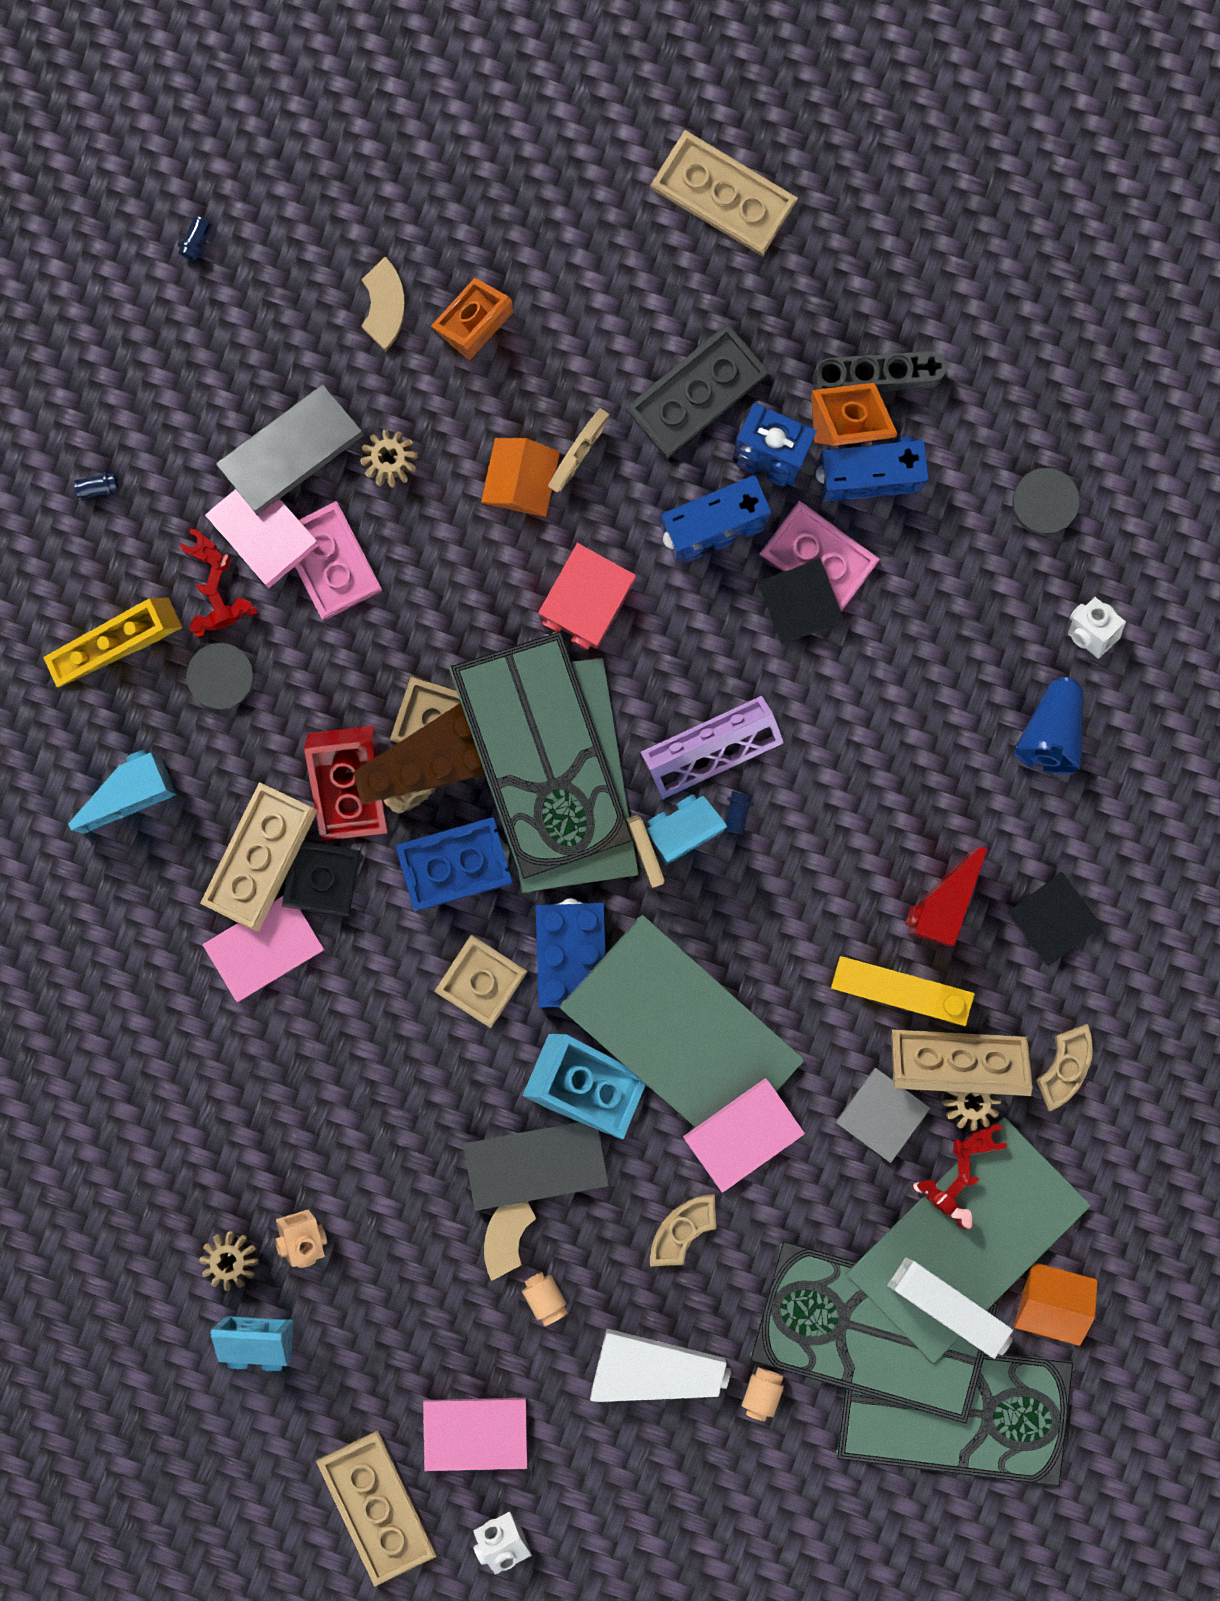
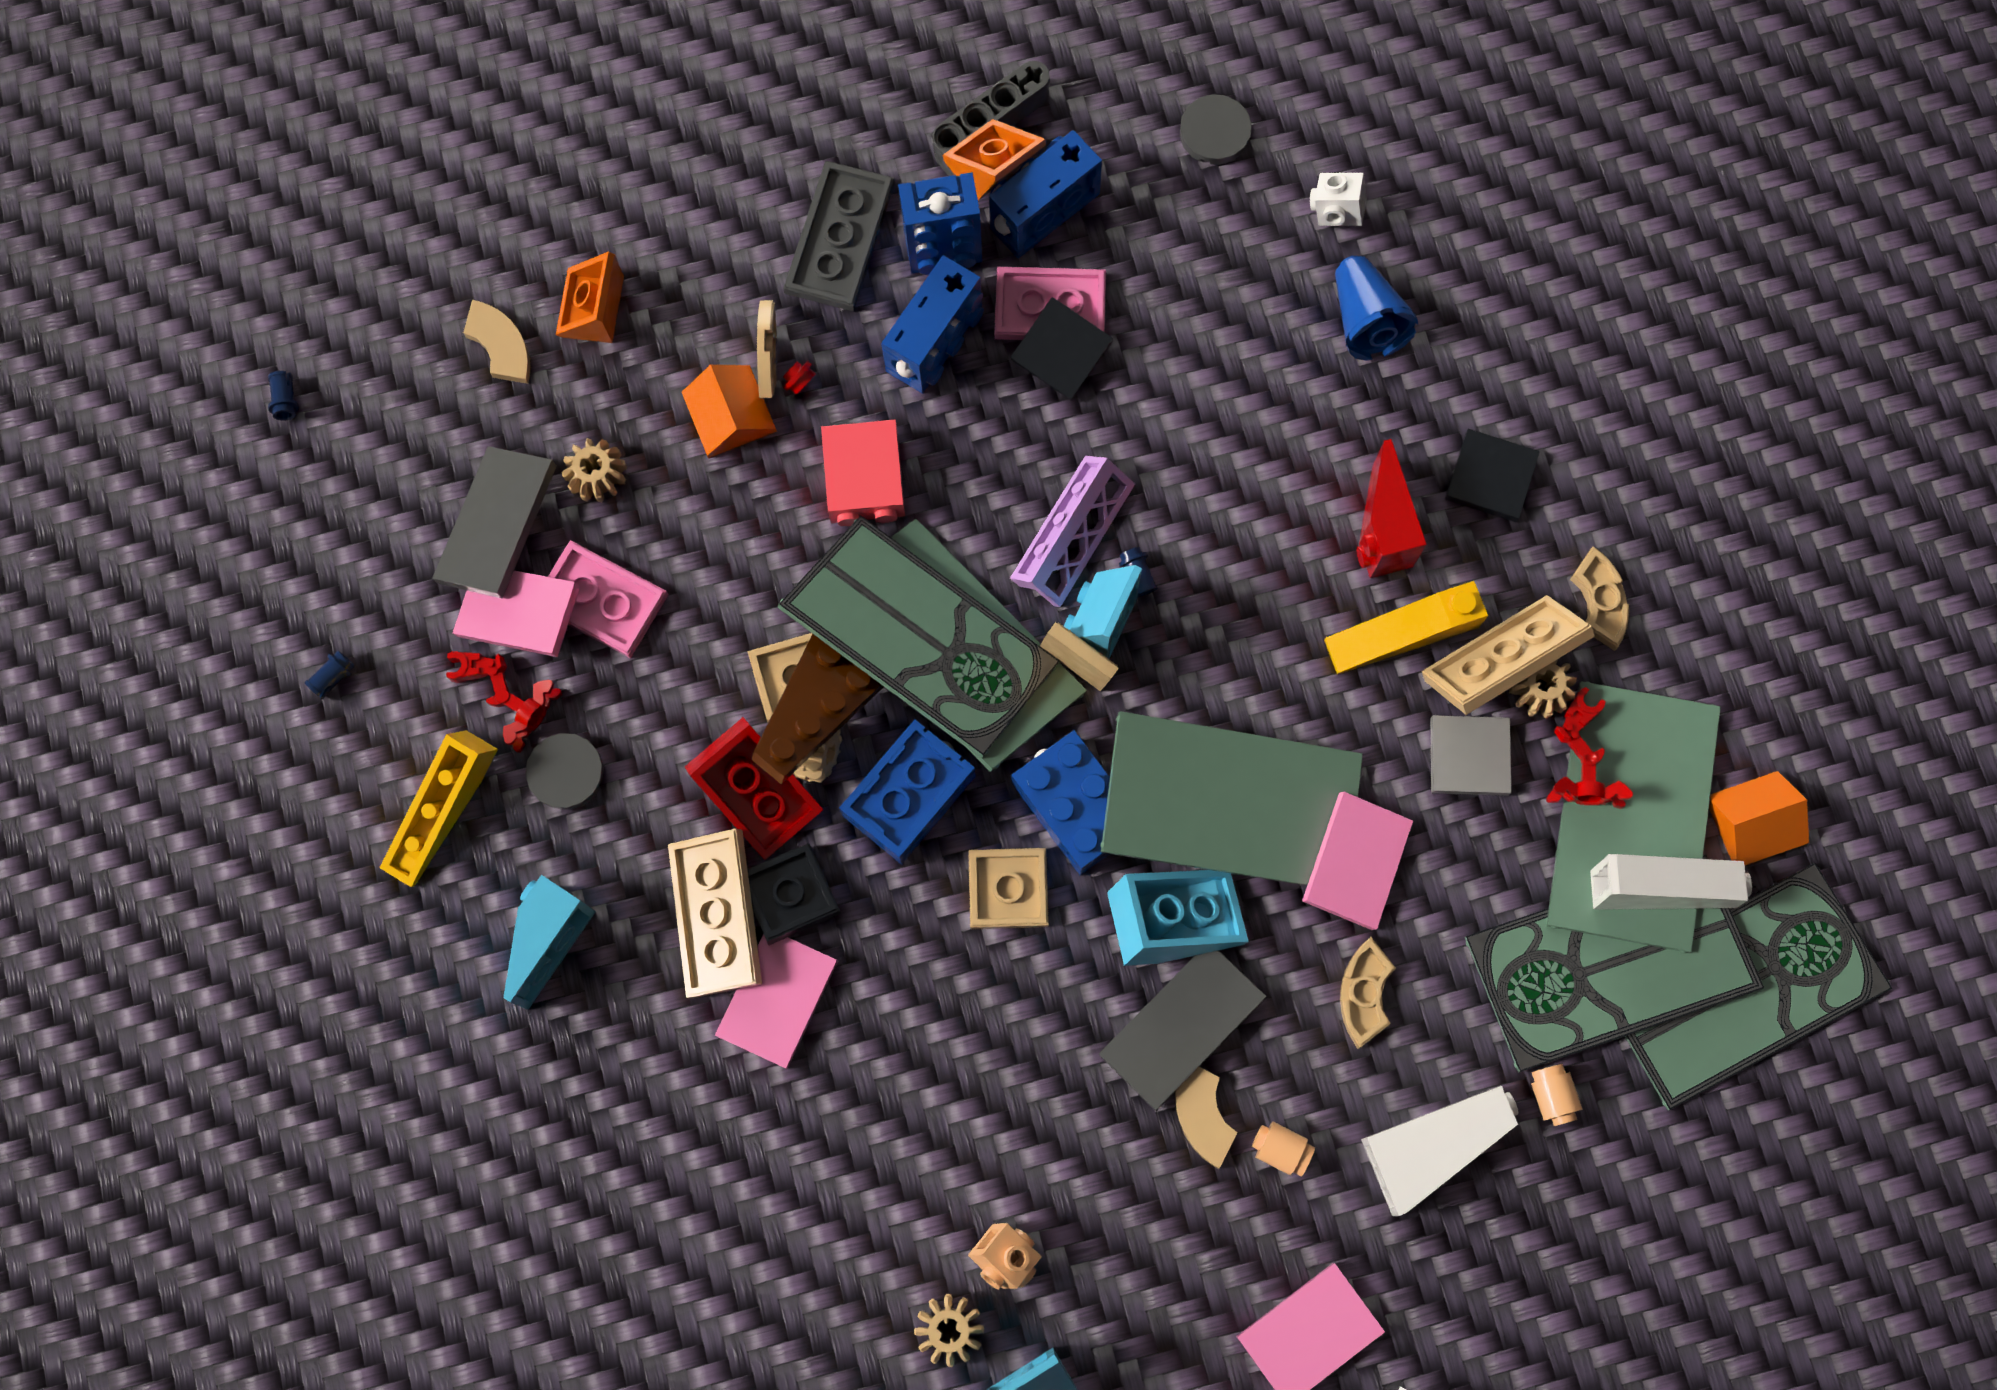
camera: 30 degrees left, 10 degrees down
(588, 487) = (798, 377): none -> red plate
(723, 193) = (745, 58): tan tile -> none

